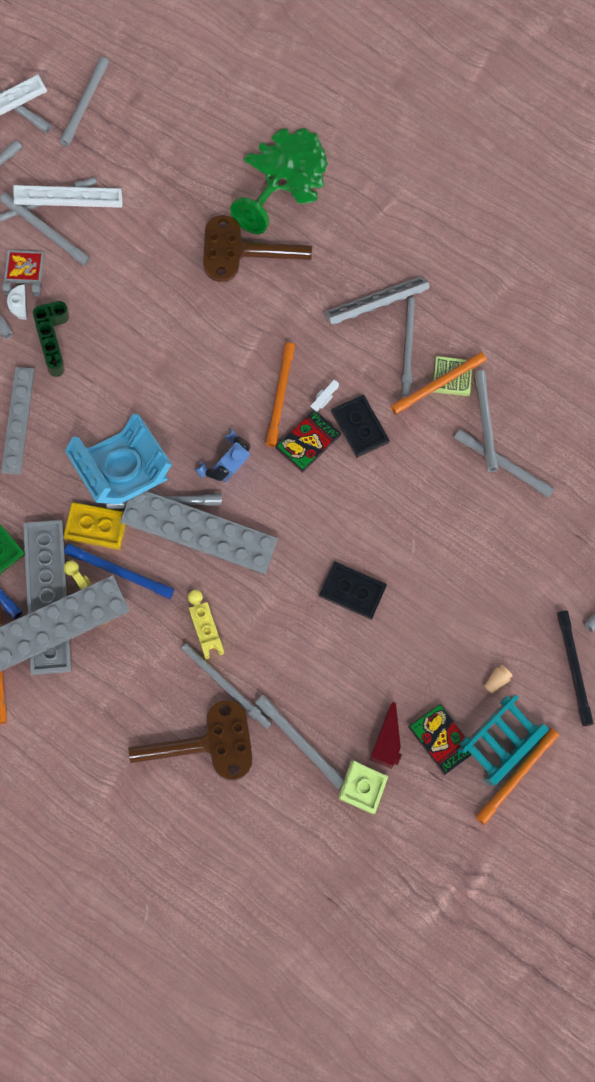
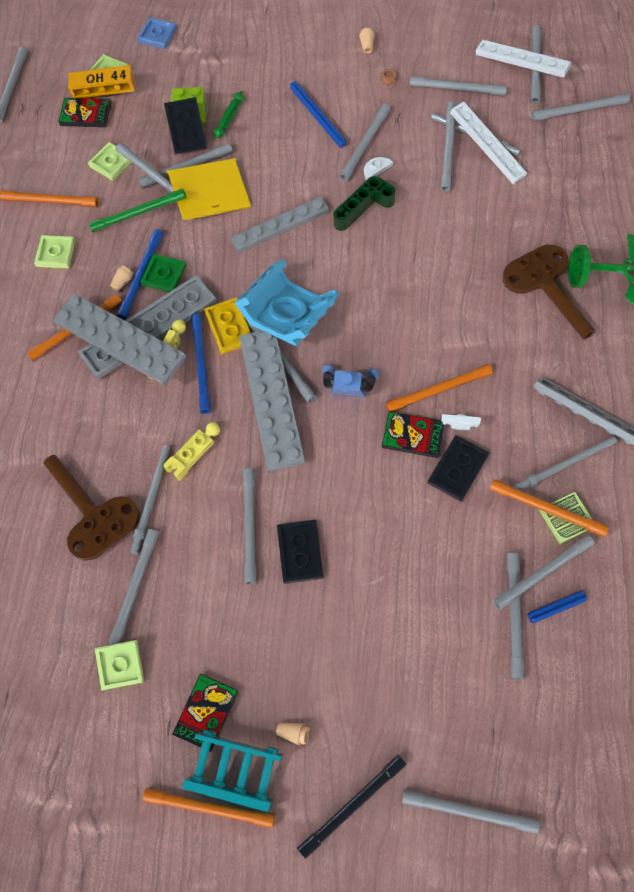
camera: 75 degrees right, 5 degrees down
(23, 268) = (406, 155): flag -> none
(341, 636) = (250, 575): none -> light grey piece
(388, 742) = (173, 662): dark red slope -> none
(515, 432) = (557, 606): none -> blue axle

